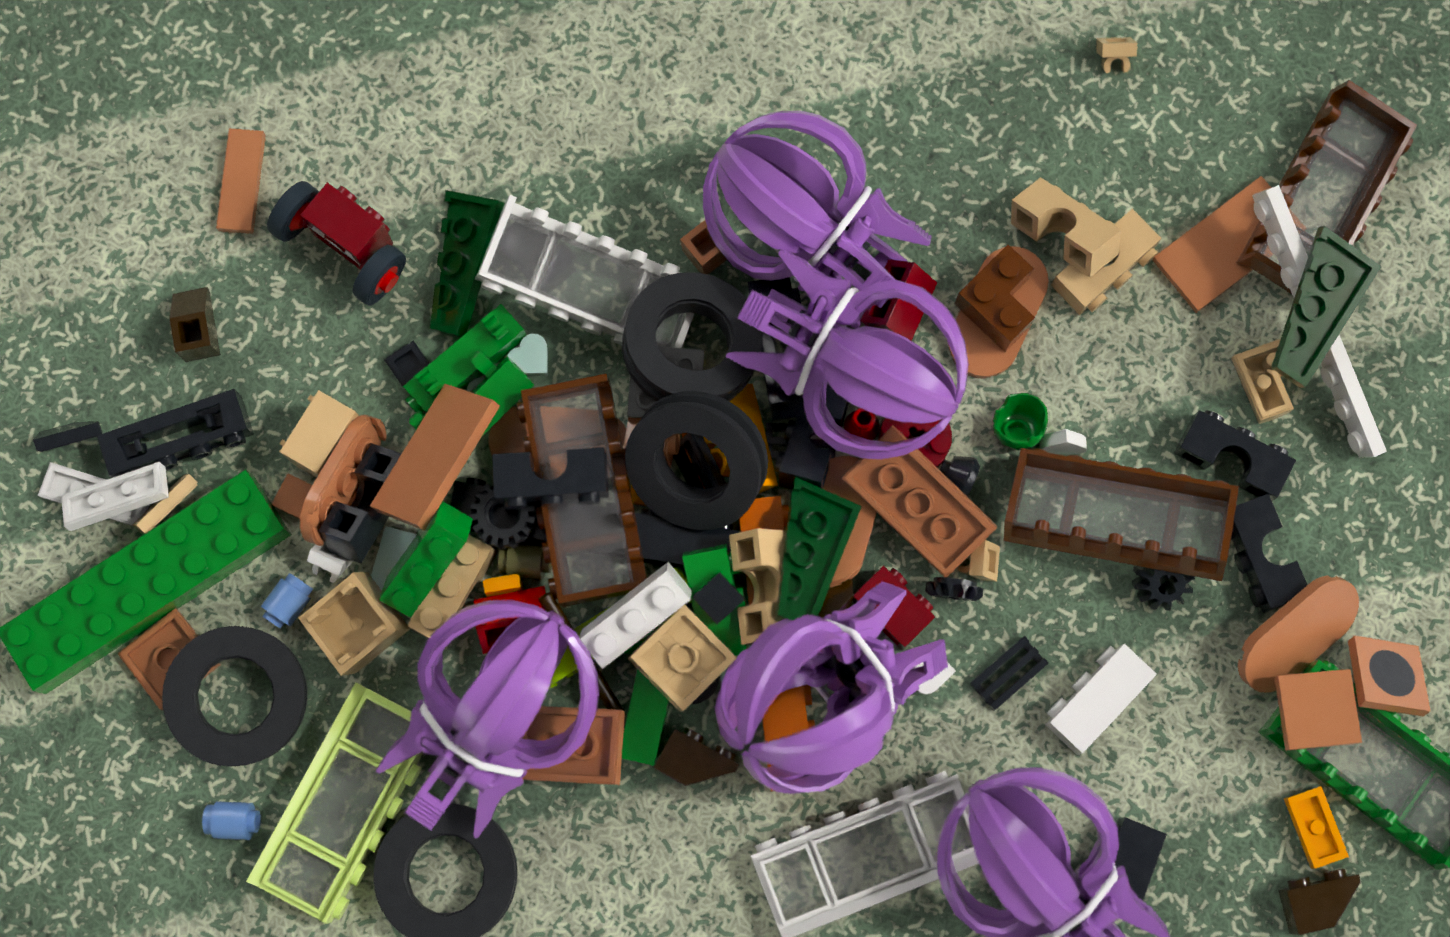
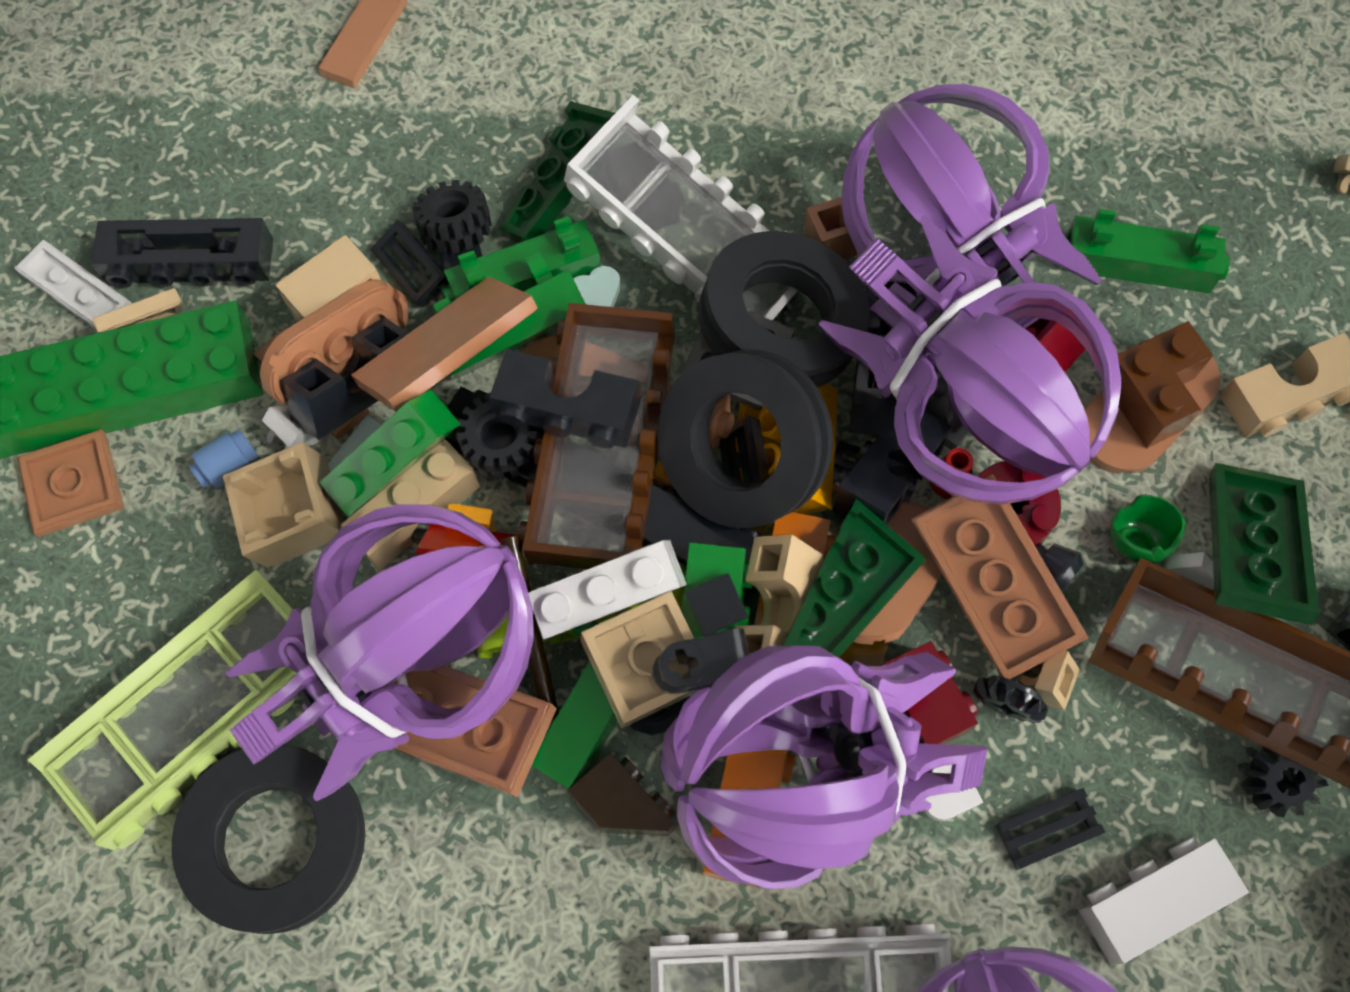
camera: 20 degrees right, 10 degrees down
(66, 435) = (67, 214): black tile -> none
(114, 496) = (87, 287): white tile -> none
(183, 685) = (68, 506): black tyre -> none
(193, 325) = (250, 151): dark brown slope -> none
(231, 820) = (51, 684): medium blue brick -> none
(346, 229) = (445, 96): brick -> none
(374, 372) = (430, 286): none -> black tile
(377, 320) = (452, 216): none -> black tyre
(524, 560) = (504, 498): olive brick -> none
(728, 647) = (705, 657): none -> black piece
(961, 183) = (1151, 253): none -> green brick
(1088, 239) = (1286, 343): tan arch -> none
(1106, 406) = (1262, 544): none -> dark green plate

